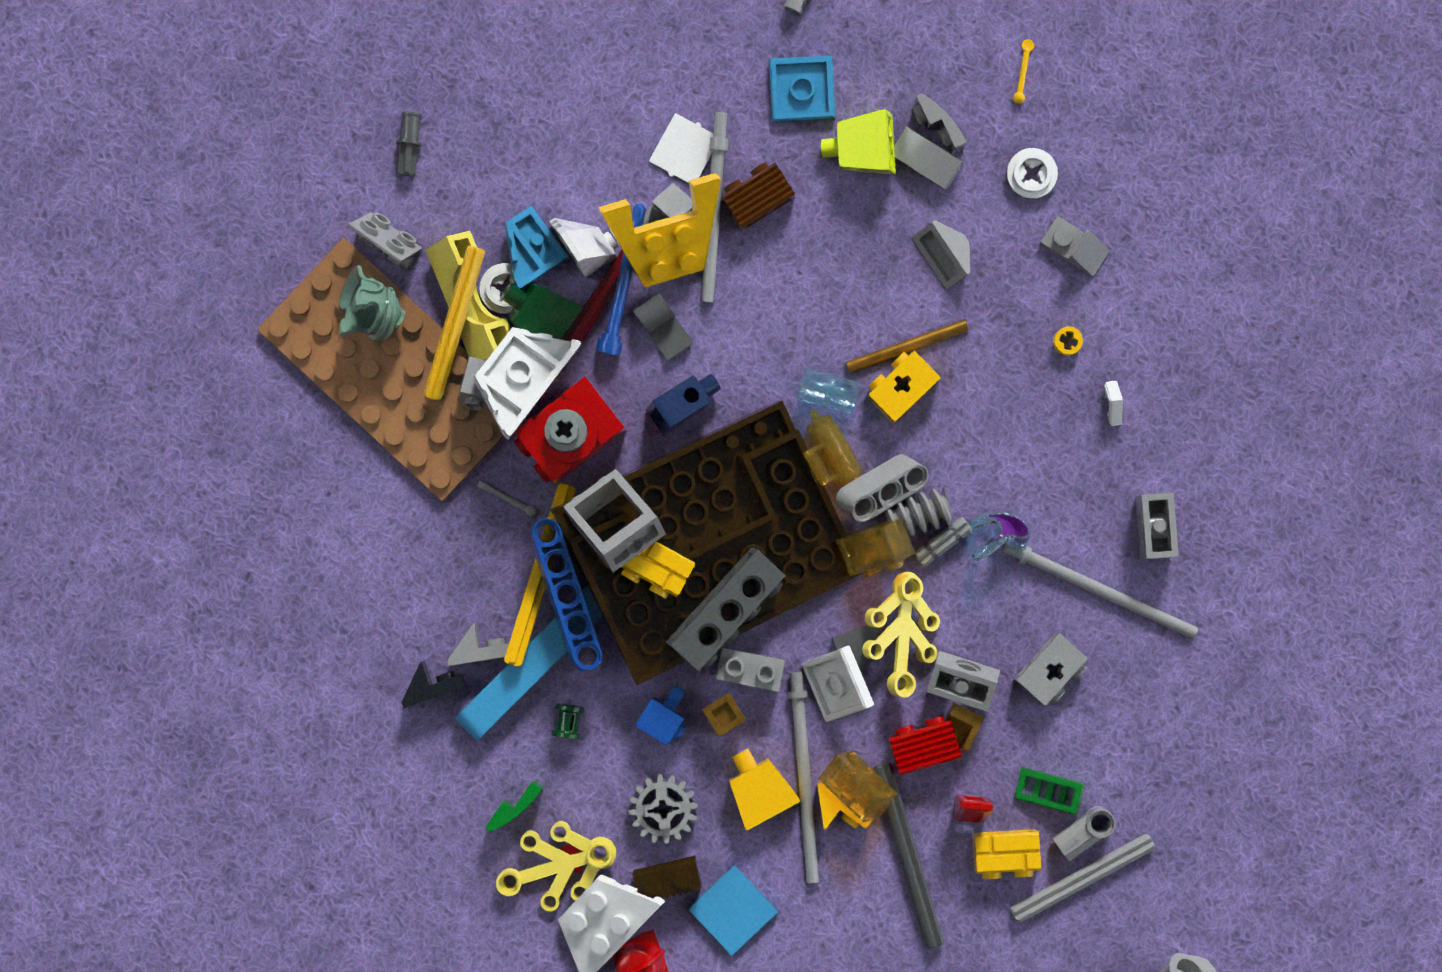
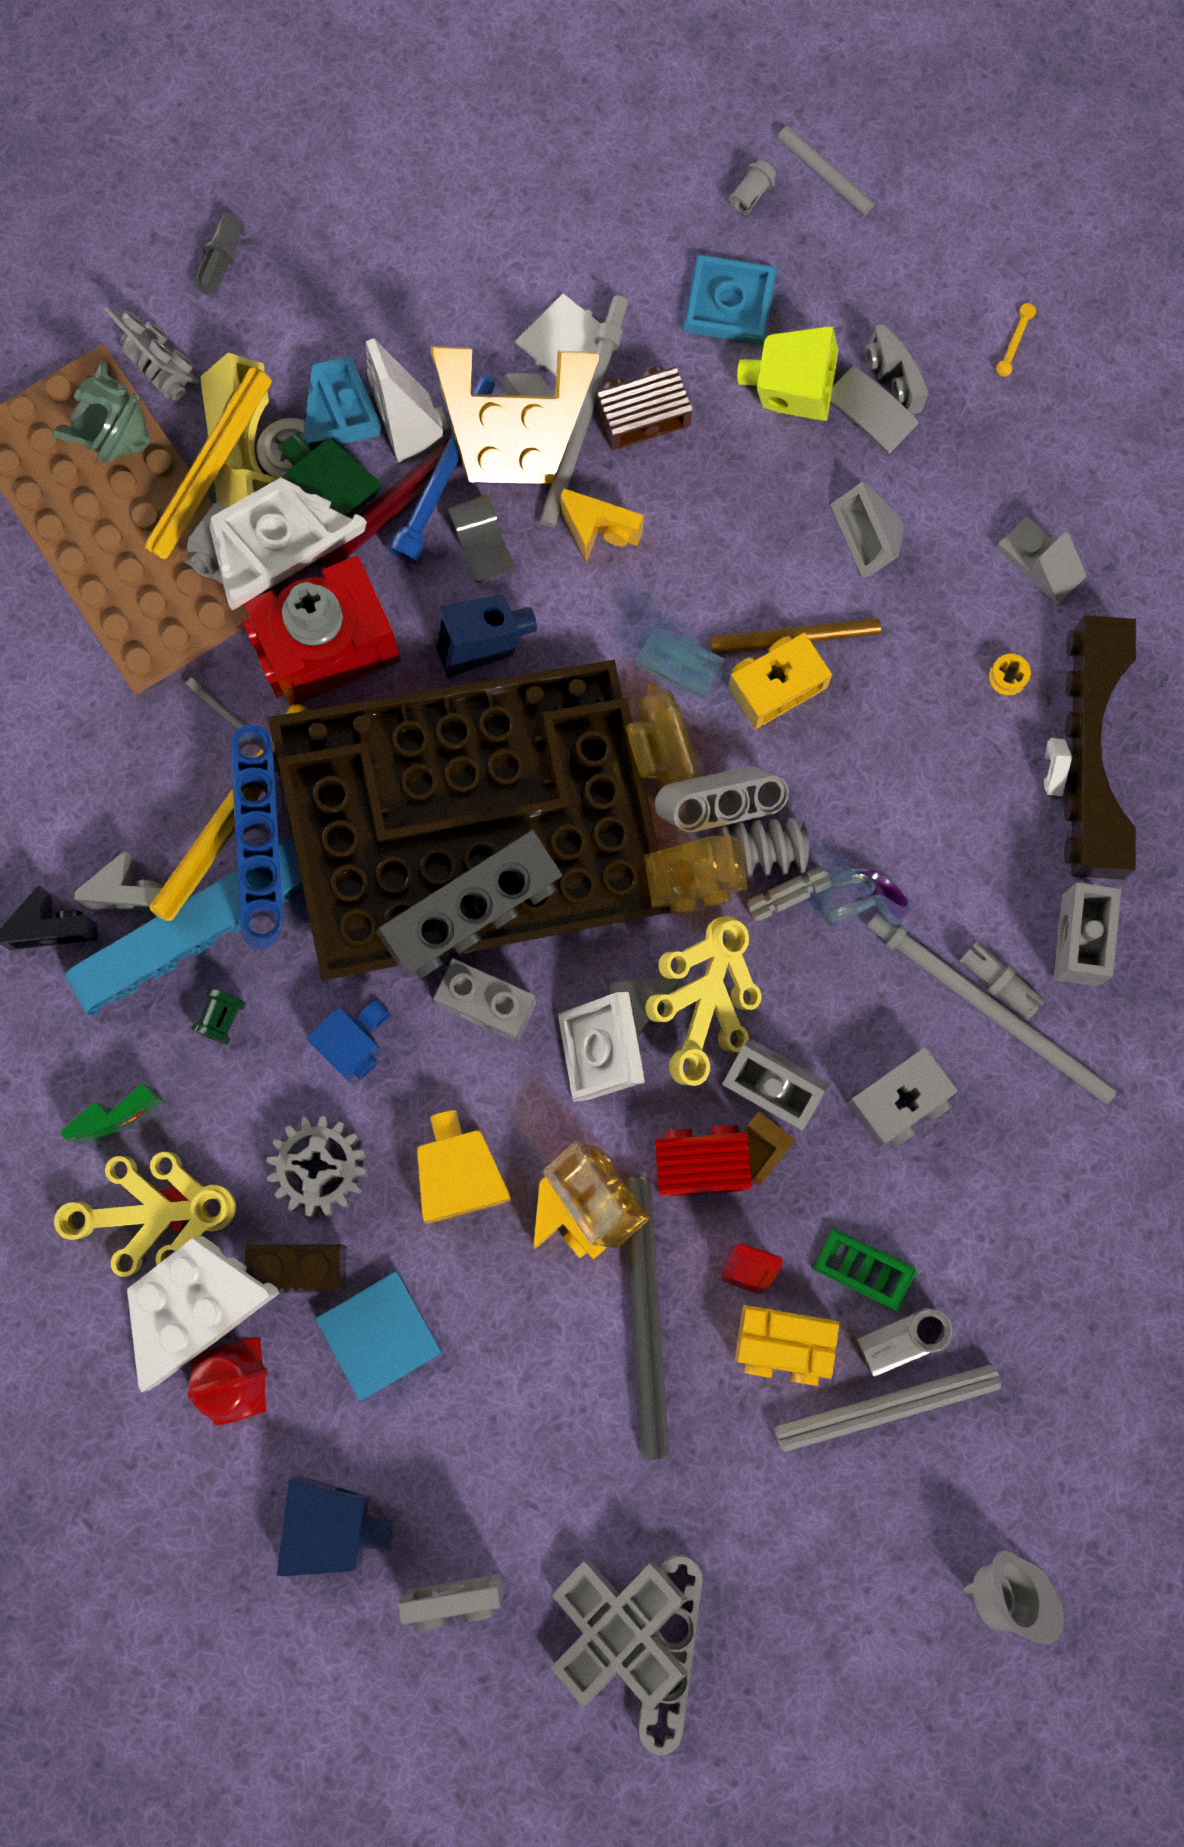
camera: 10 degrees right, 10 degrees down
(617, 549) = (333, 766): light grey window -> none
(661, 568) = (385, 817): yellow brick -> none
(724, 714) = (433, 1054): pearl gold panel -> none
(736, 294) = (591, 516): none -> yellow slope
(797, 695) = (542, 1057): light grey bar -> none
(1033, 158) = (1006, 442): white gear -> none
(1104, 569) = (1002, 980): none -> light grey pin
(1154, 448) = (1101, 832): none -> dark brown arch

